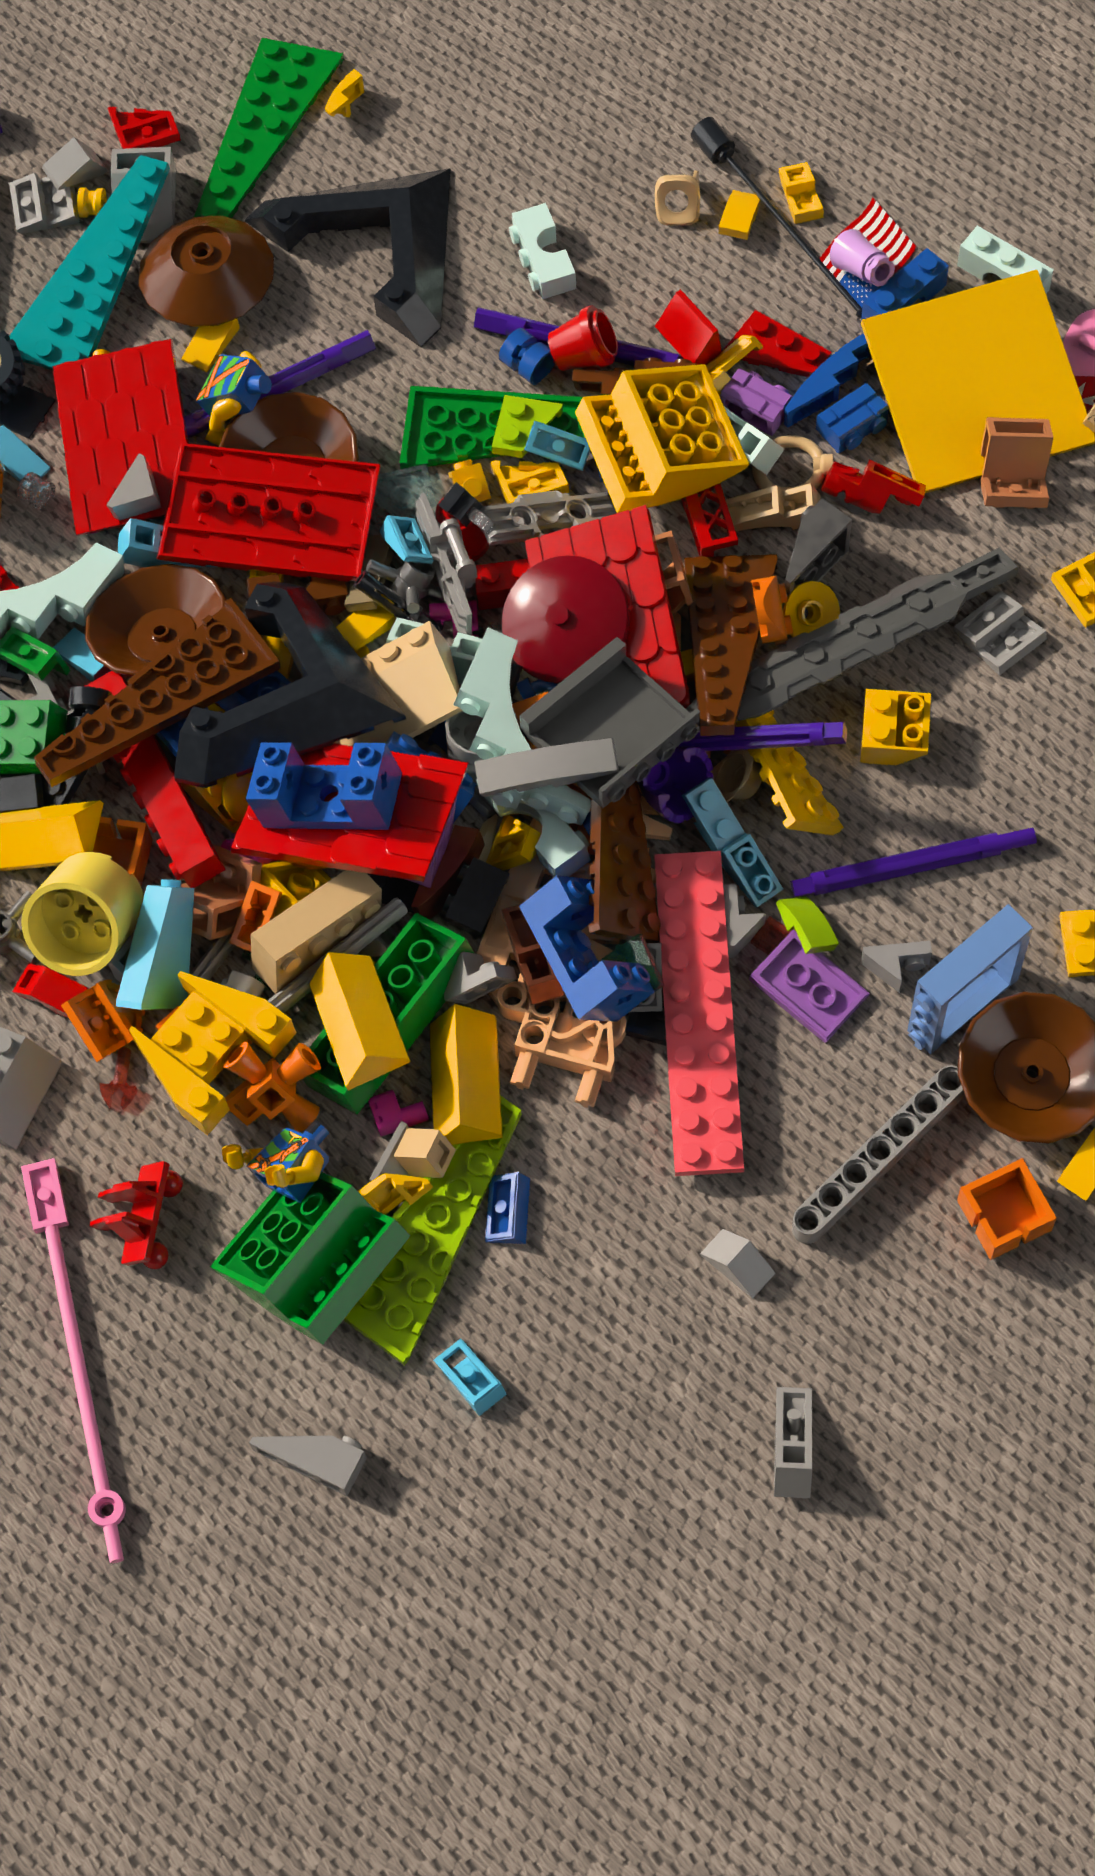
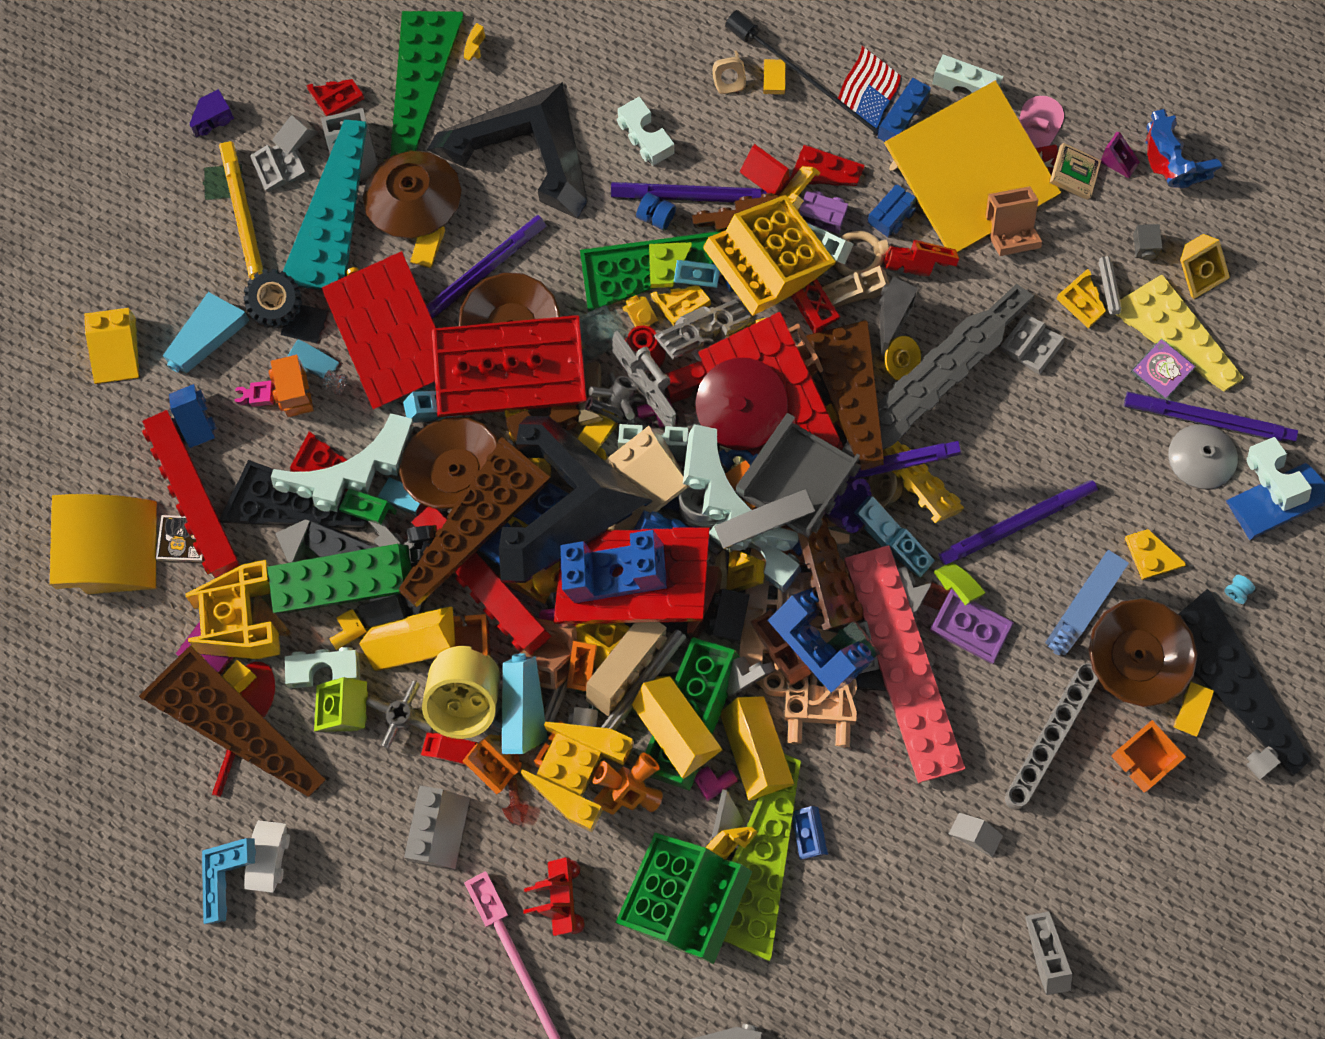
camera: 15 degrees left, 5 degrees up
(90, 201) = (314, 159): yellow wheel -> none
(136, 491) = (410, 370): light grey slope -> none
(232, 390) = (457, 281): torso -> none
(287, 1163) = (650, 837): torso -> none
(406, 539) = (610, 366): medium azure slope -> none
(424, 1153) = (745, 808): tan panel -> none
(465, 508) = (649, 337): black piece -> none
(471, 1378) = (817, 959): medium azure slope -> none
(584, 341) = (695, 194): red piece -> none
(768, 602) = (876, 358): orange slope -> none
(801, 193) = (811, 52): yellow slope -> none
(824, 382) = (867, 188): blue slope -> none
(861, 258) = (870, 94): lavender plant -> none
(887, 960) = (1021, 597): light grey slope -> none
(894, 726) = (981, 428): yellow slope -> none

